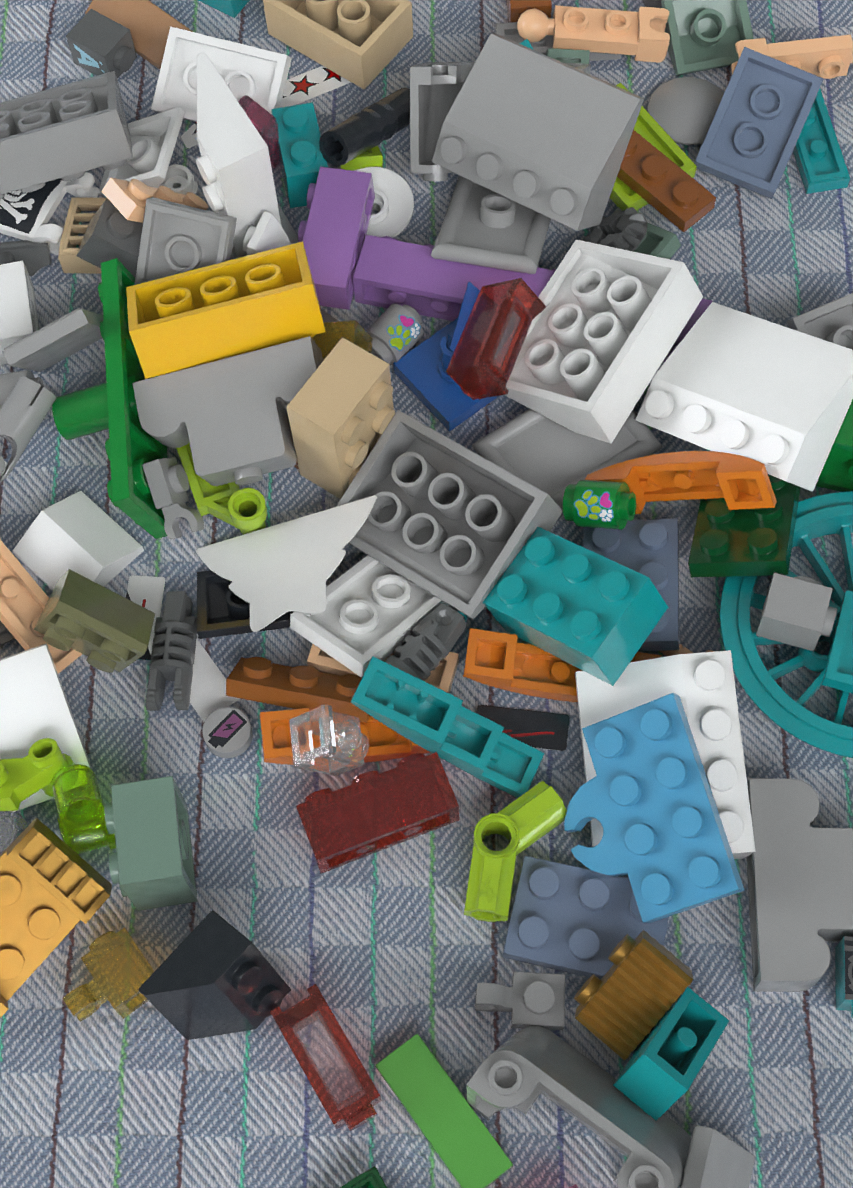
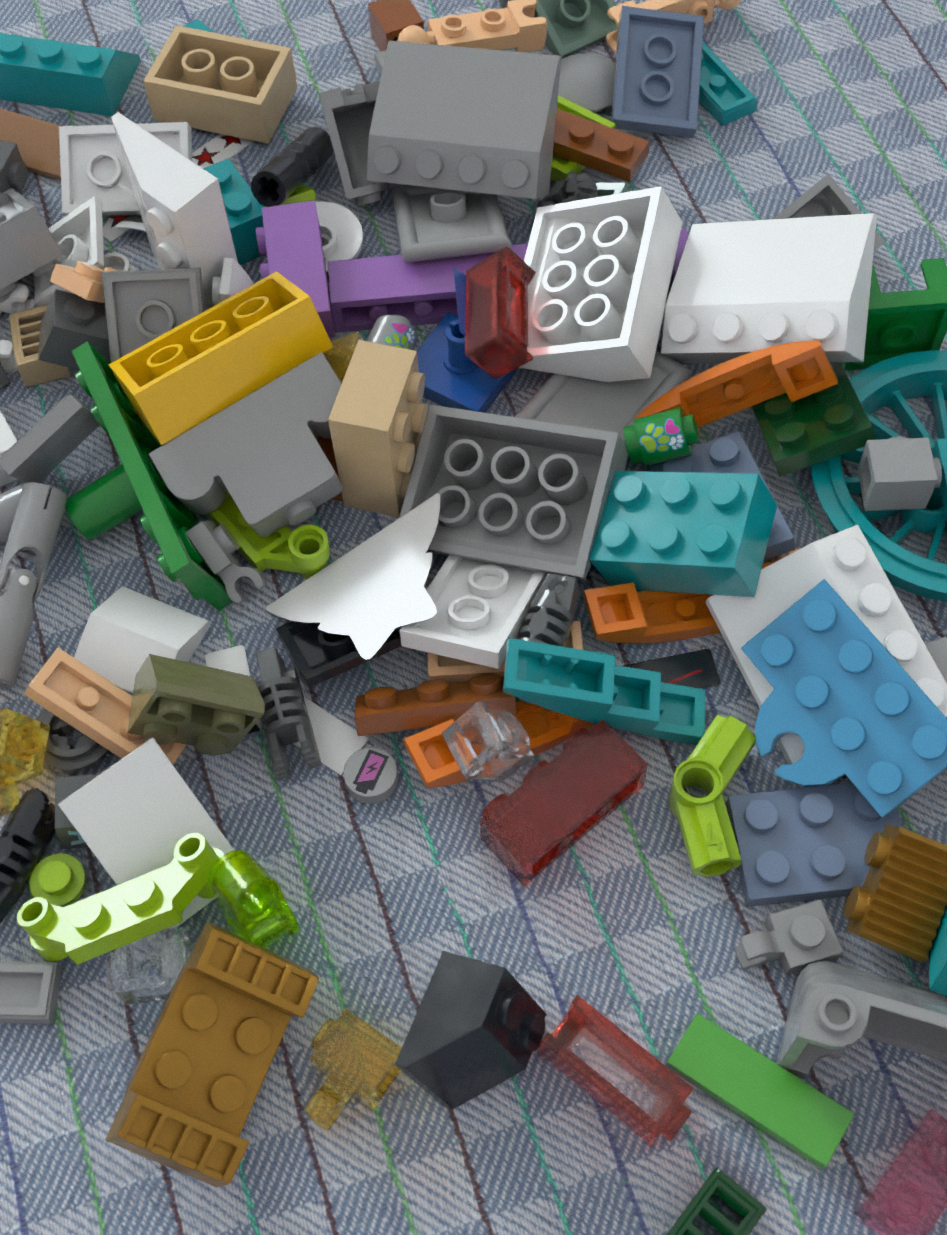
camera: 20 degrees left, 5 degrees down
(151, 843) = (348, 916): sand green brick -> none

